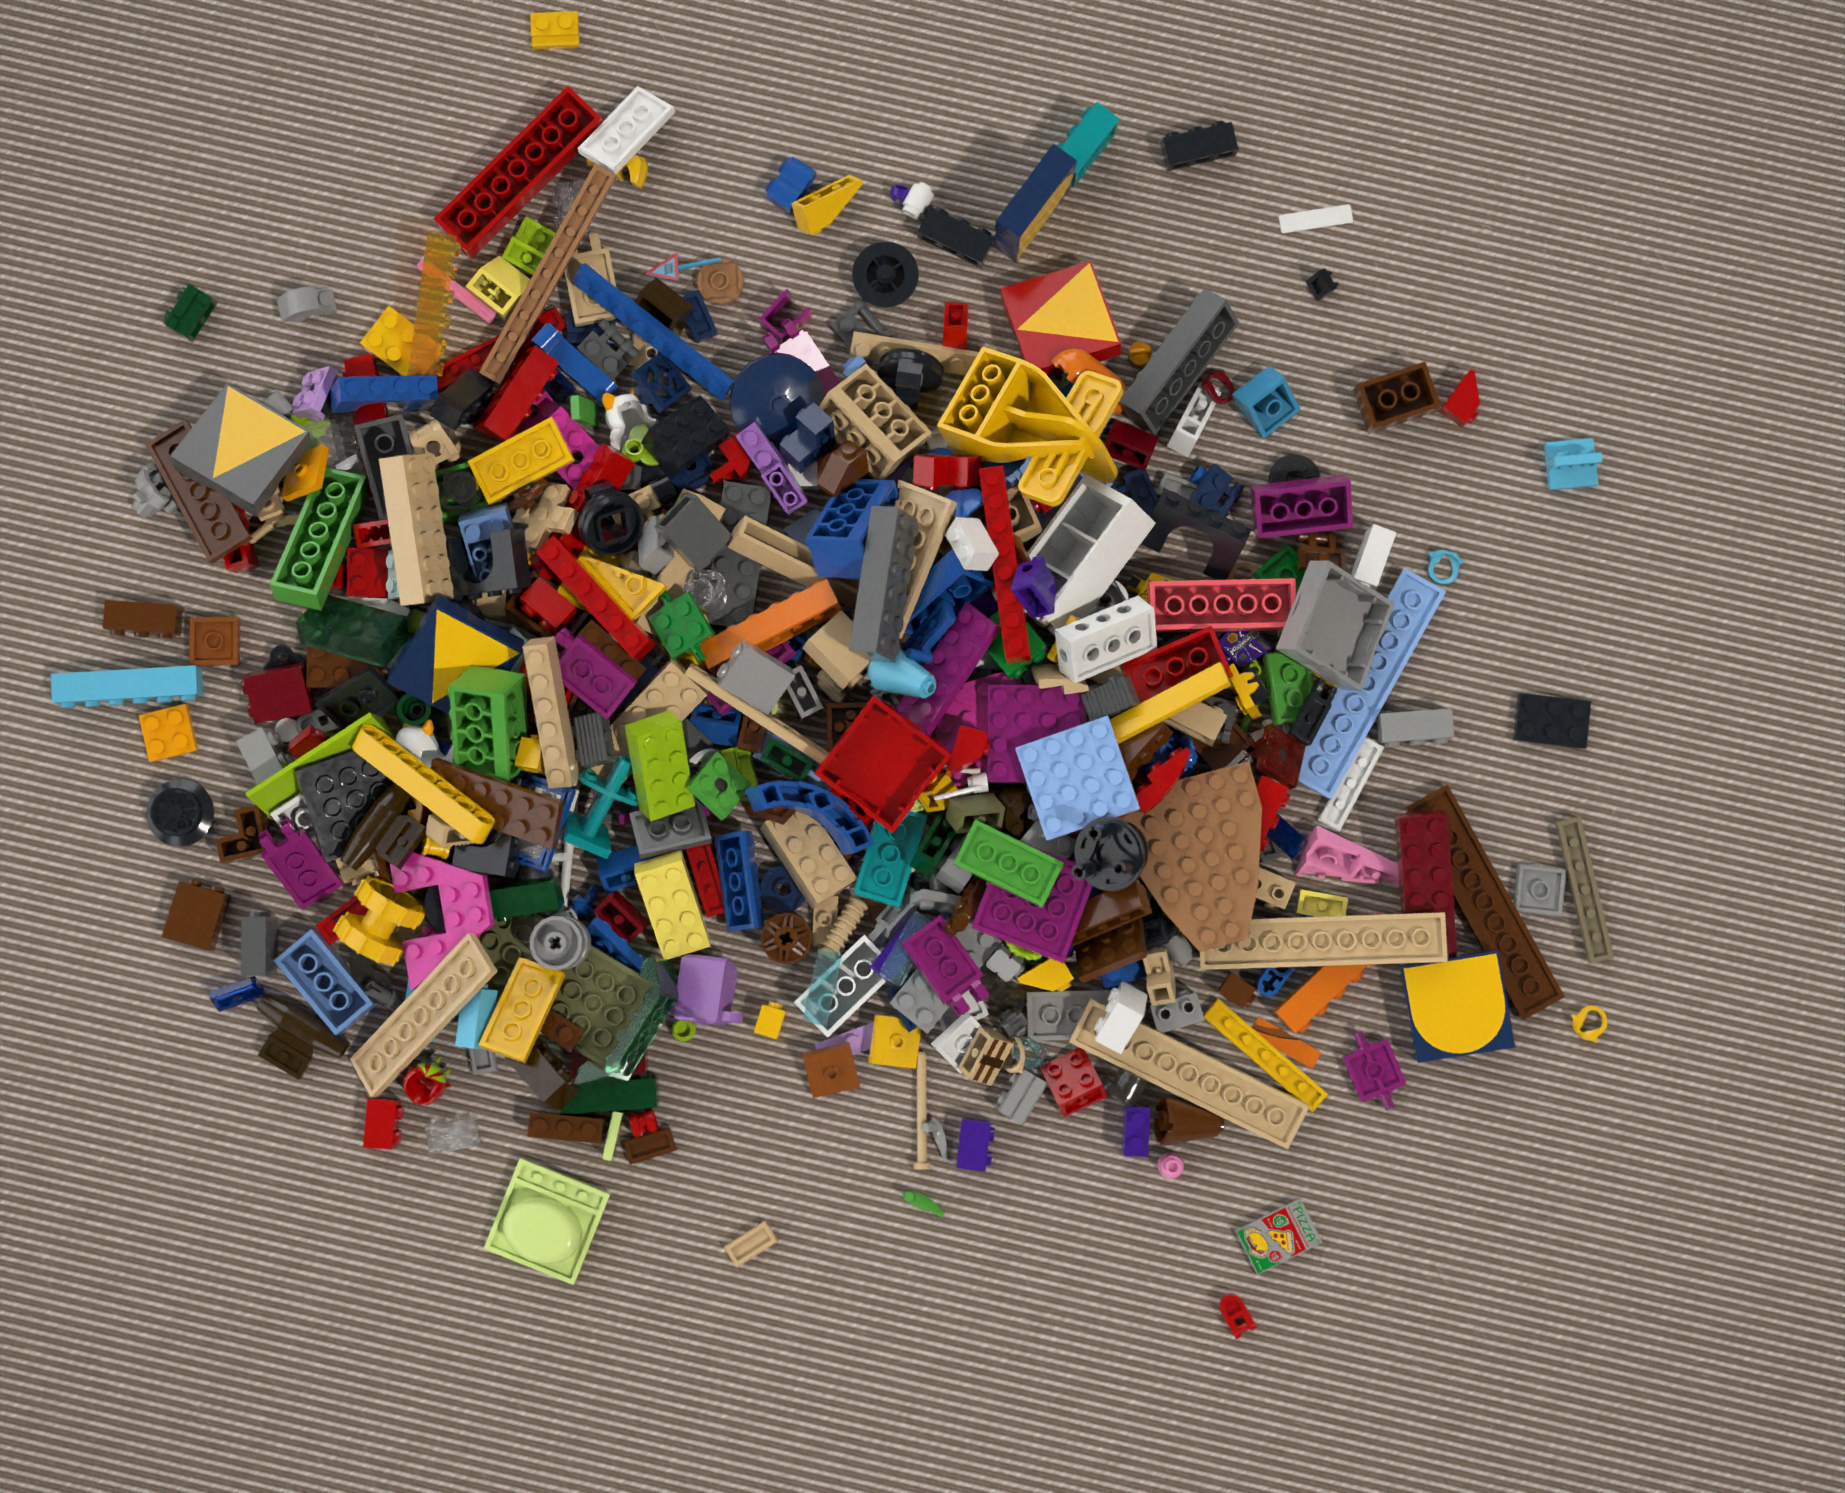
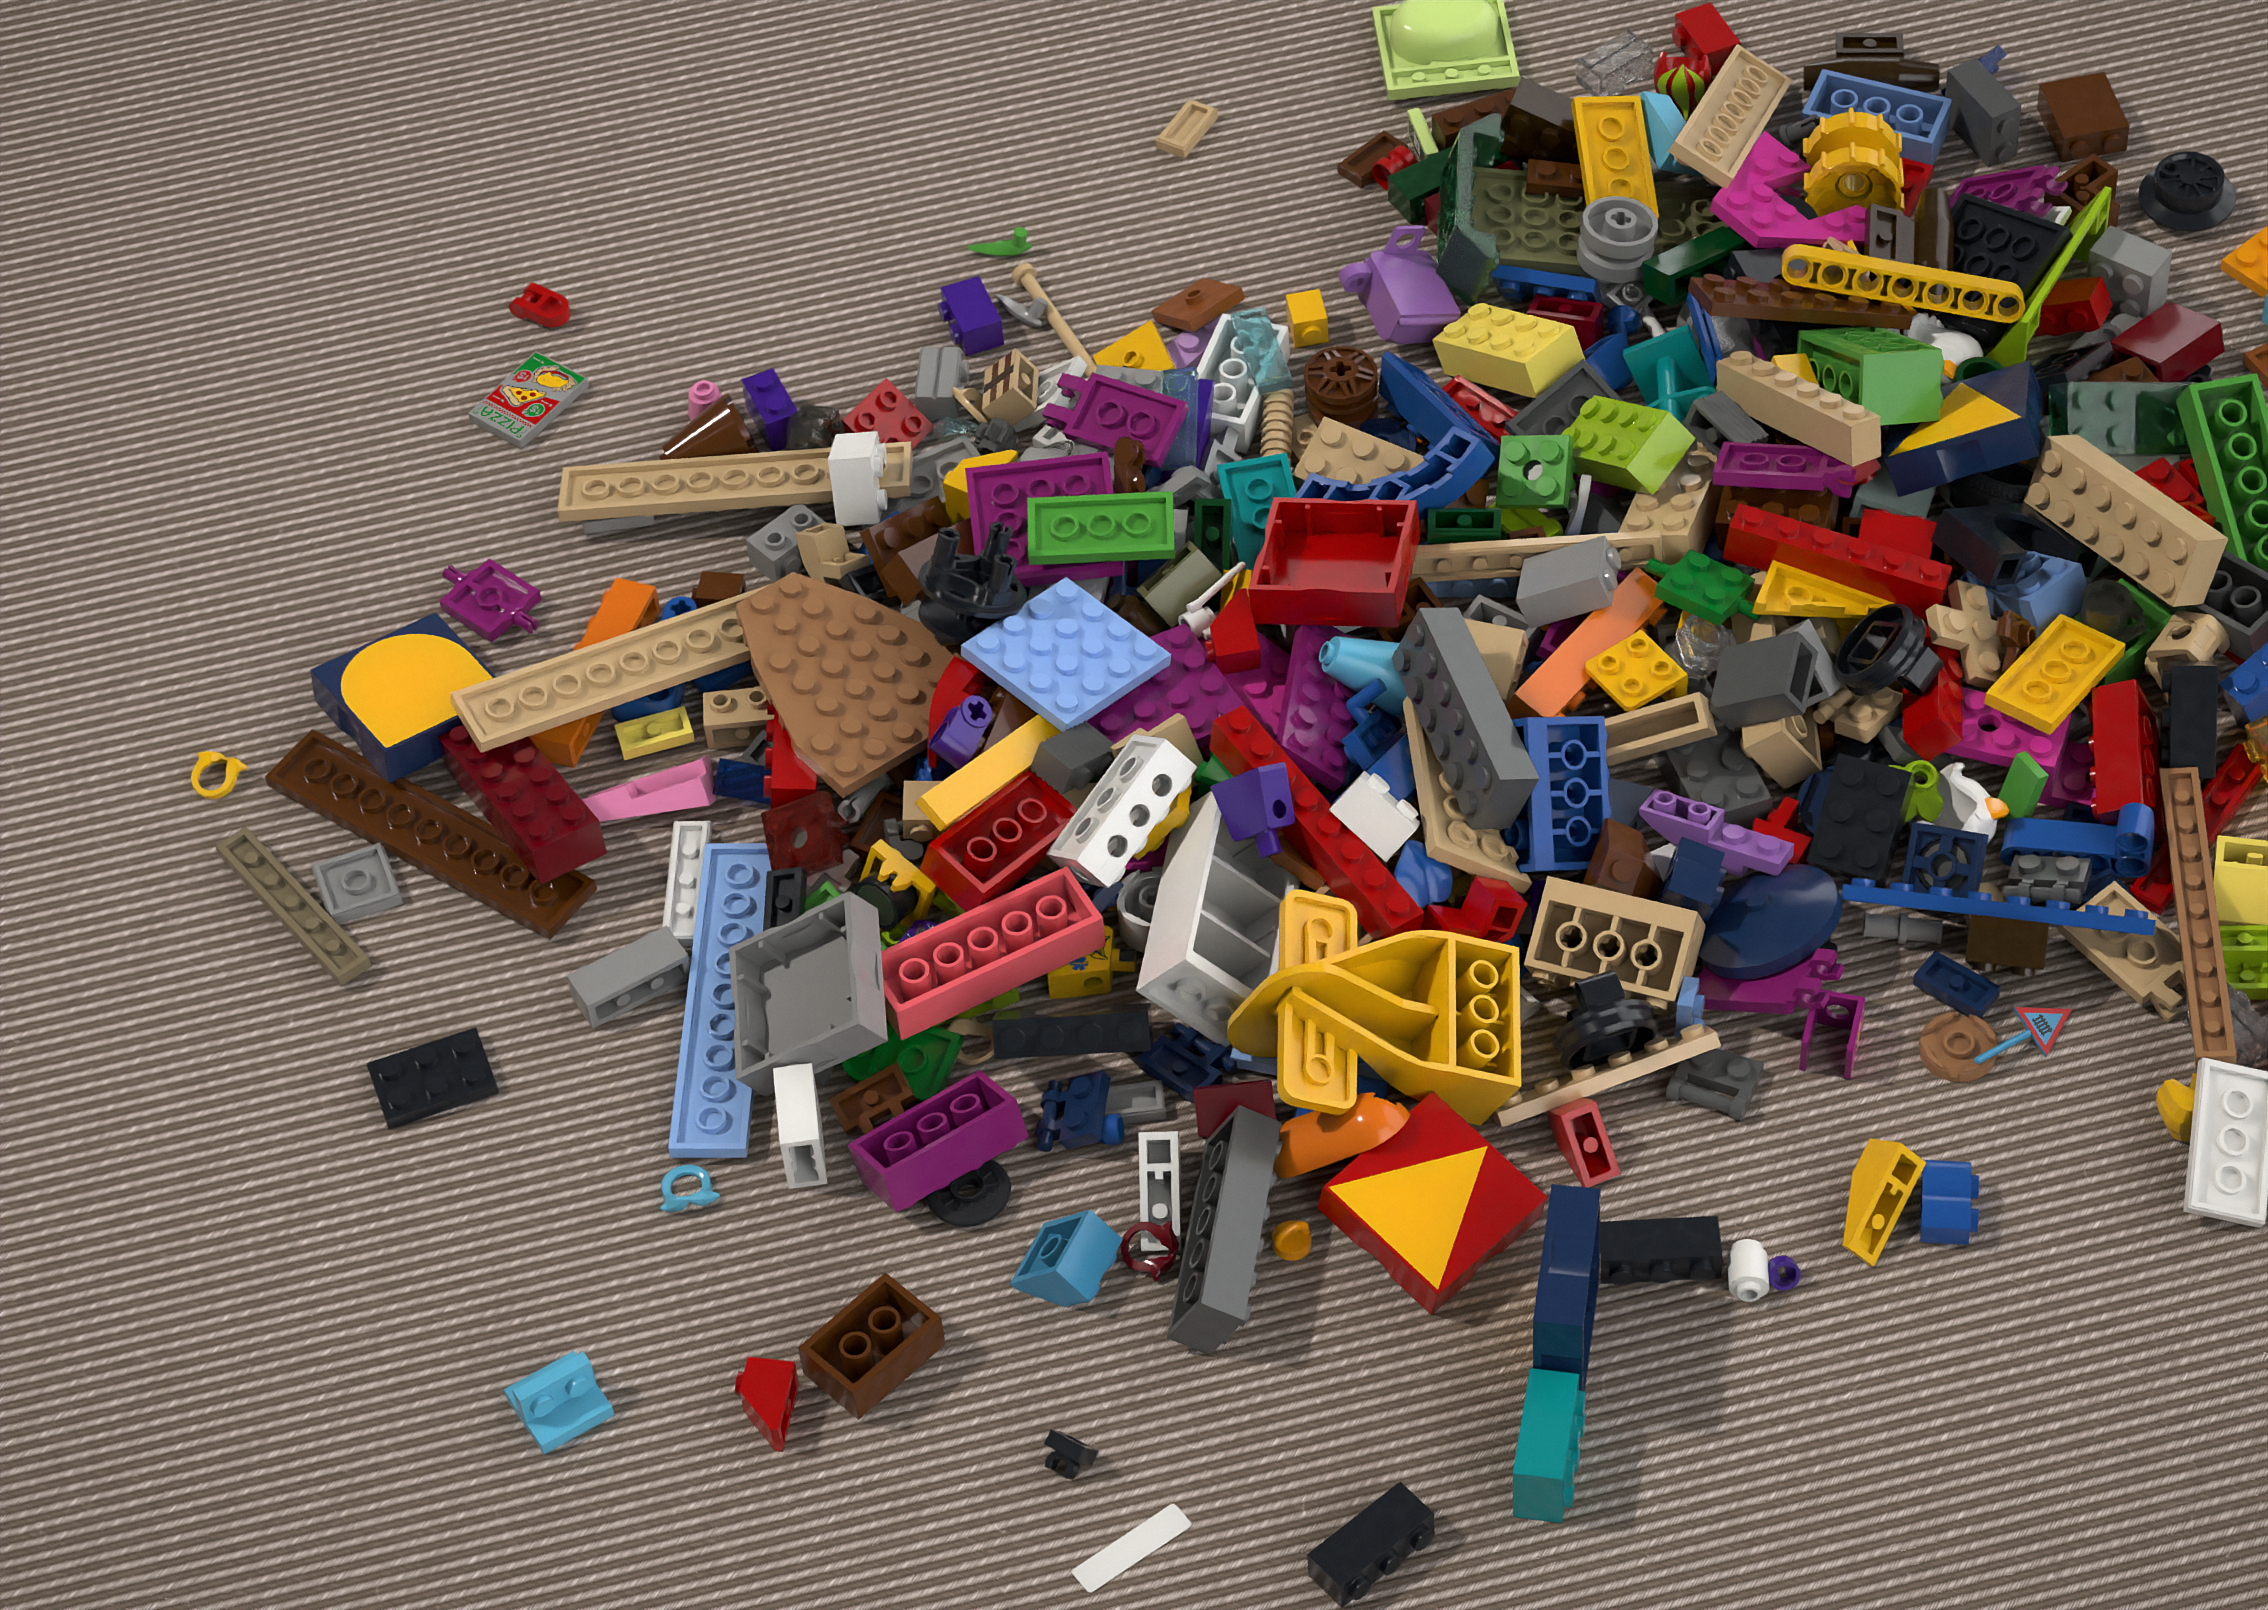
camera: 160 degrees right, 35 degrees down
(755, 588) = (1637, 672): none -> yellow bracket
(885, 274) = (1727, 1147): black wheel -> none
(1172, 742) = (961, 731): none -> dark purple piece
(1264, 1054) = (637, 557): yellow tile -> none
(1287, 1043) = (596, 585): orange sticker -> none

